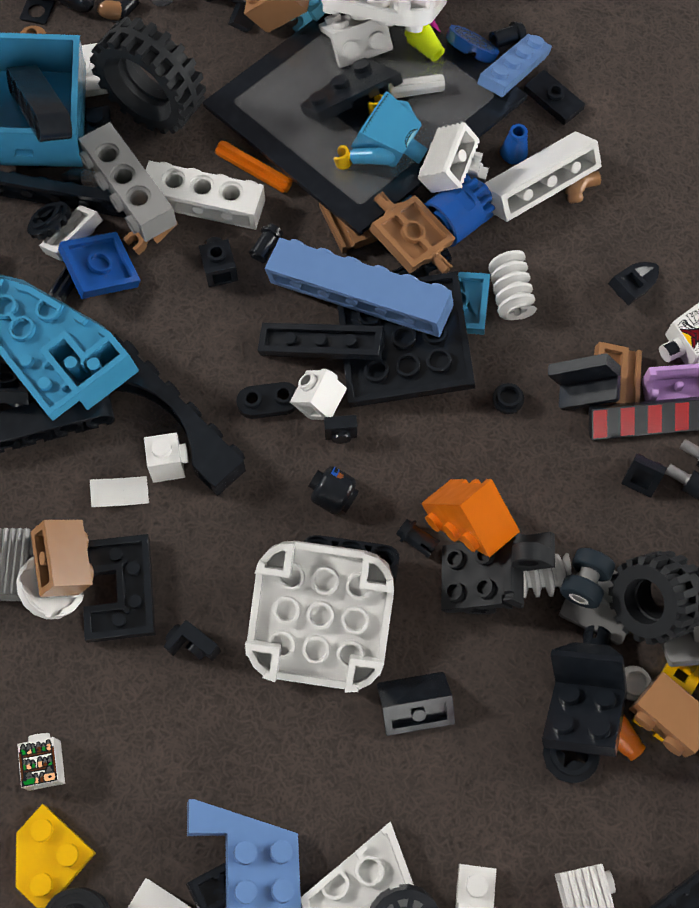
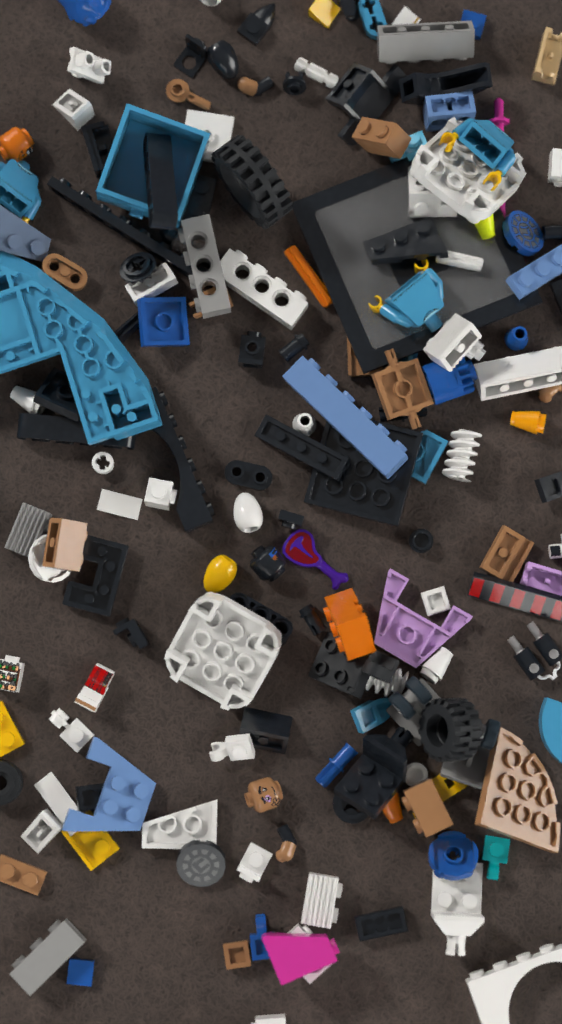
camera: 20 degrees right, 15 degrees up
(72, 444) = (96, 467): none -> white bush
(162, 809) = (75, 734): none -> white plate
(167, 735) = (95, 687): none -> leg
(277, 523) = (219, 573): none -> yellow animal
(285, 441) = (247, 513): none -> white animal
(312, 312) = (304, 429): none -> white cone
(318, 394) = (285, 487): white brick -> none
(369, 464) = (301, 551): none -> dark purple piece
(387, 739) = (235, 746): none -> white plate
(450, 789) = (263, 794): none -> medium nougat head
(512, 847) = (288, 845): none -> arm
(527, 711) = (336, 765): none -> blue axle
(542, 626) = (370, 714): none -> dark azure plate
(546, 505) = (408, 633): none -> lavender wing
(557, 461) = (435, 601): none -> white tile
(570, 226) = (529, 421): none -> light orange cone
(587, 381) = (480, 554): black panel -> none
(597, 532) = (436, 666): none -> white cone
(643, 475) = (490, 636): black tile -> none

